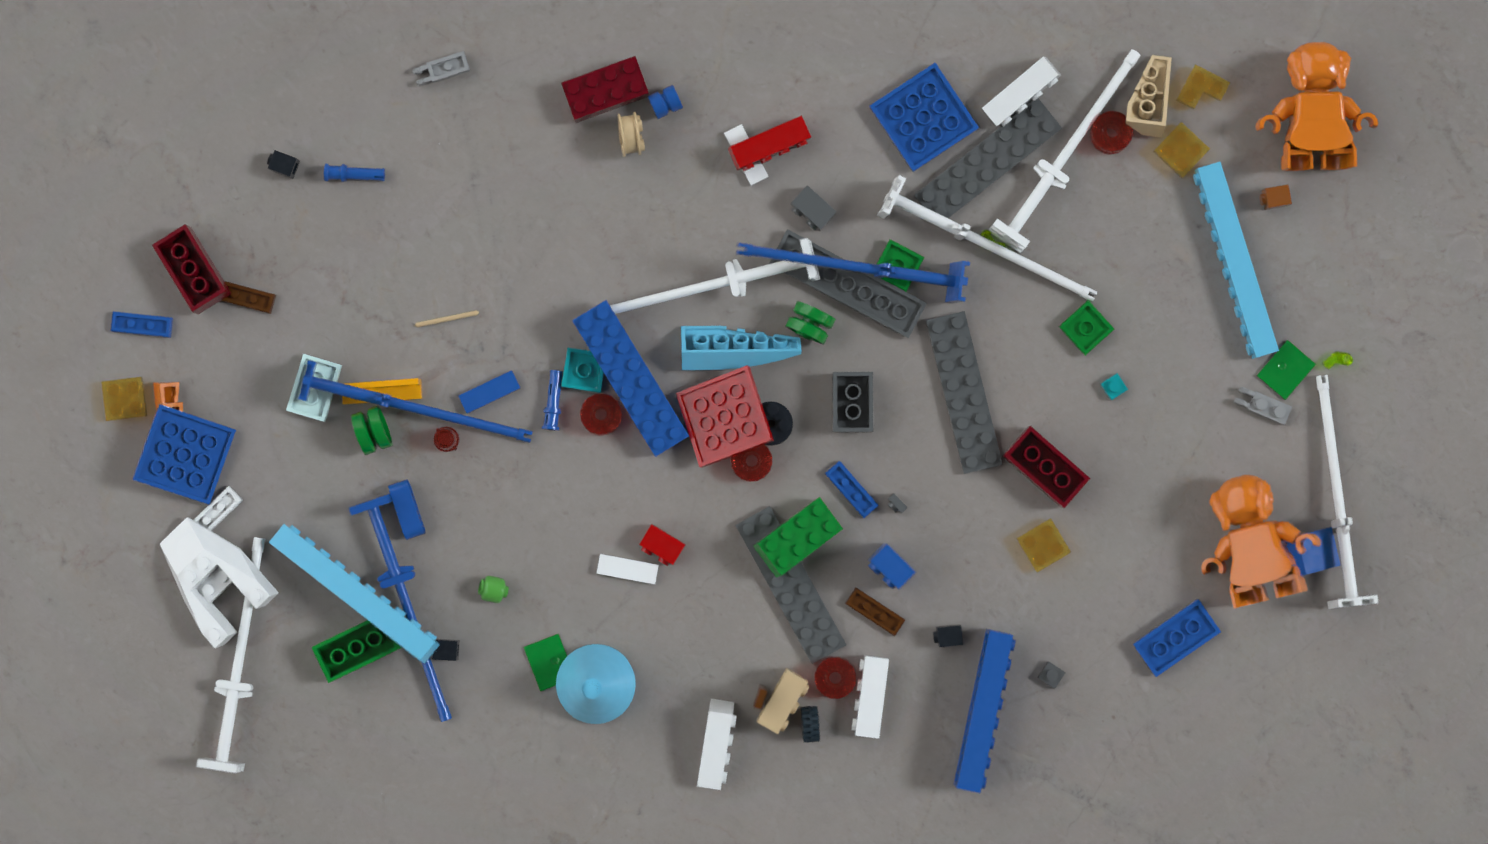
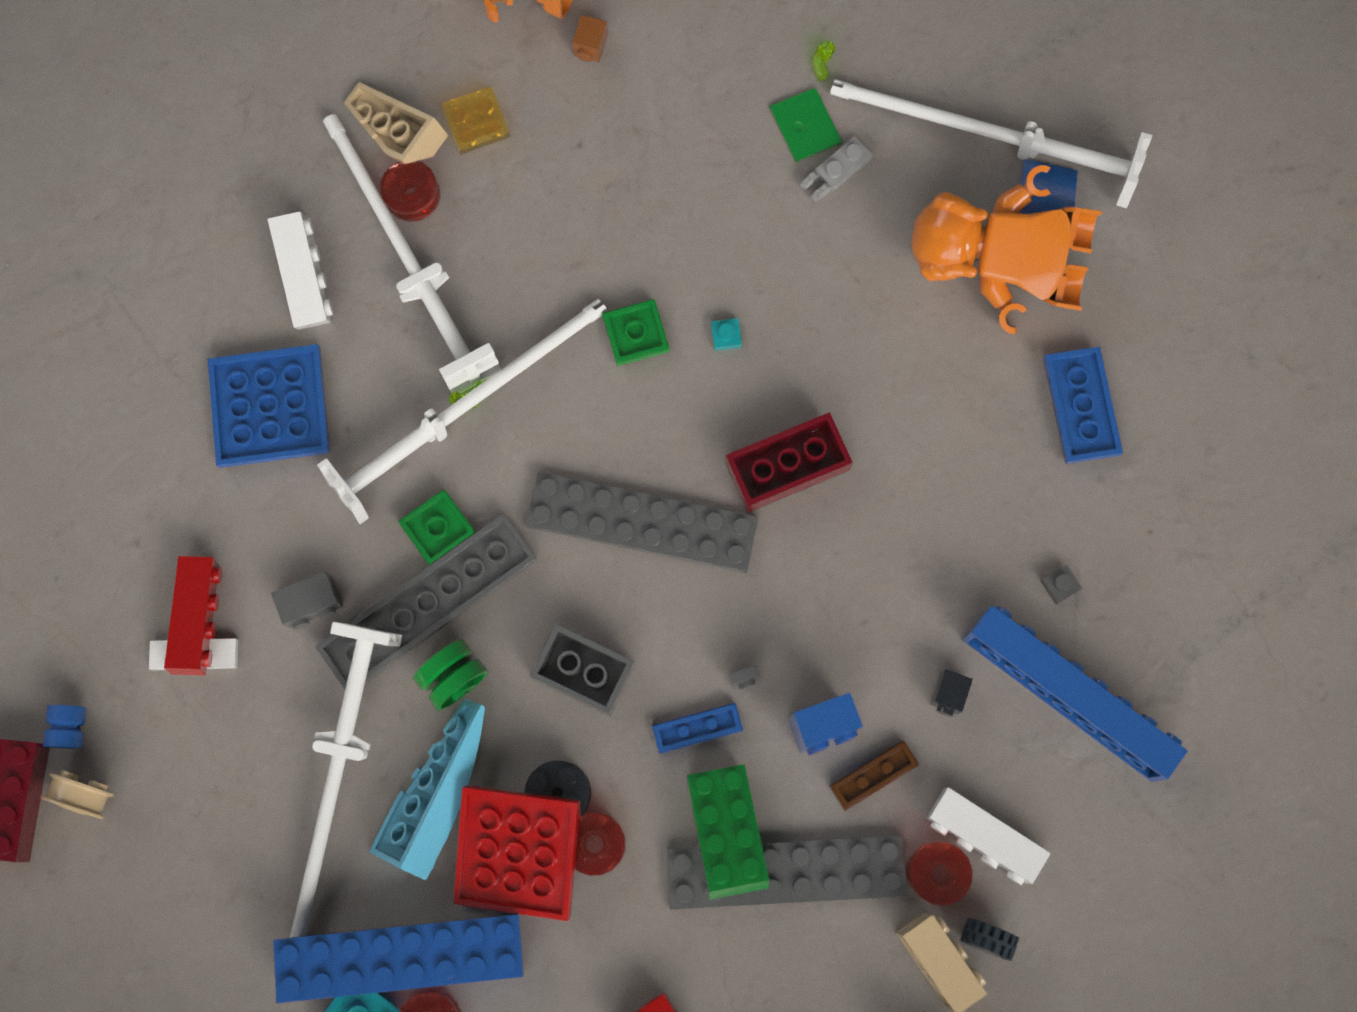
camera: 65 degrees left, 10 degrees down
(760, 697) = (923, 992): reddish brown tile -> none
(953, 281) = (491, 464): blue piece -> none
(989, 160) = (366, 352): dark grey plate -> none
(1043, 545) = (887, 514): clear yellow plate -> none
(1201, 82) = (406, 61): clear yellow plate -> none
(1236, 260) = (642, 118): medium azure brick -> none

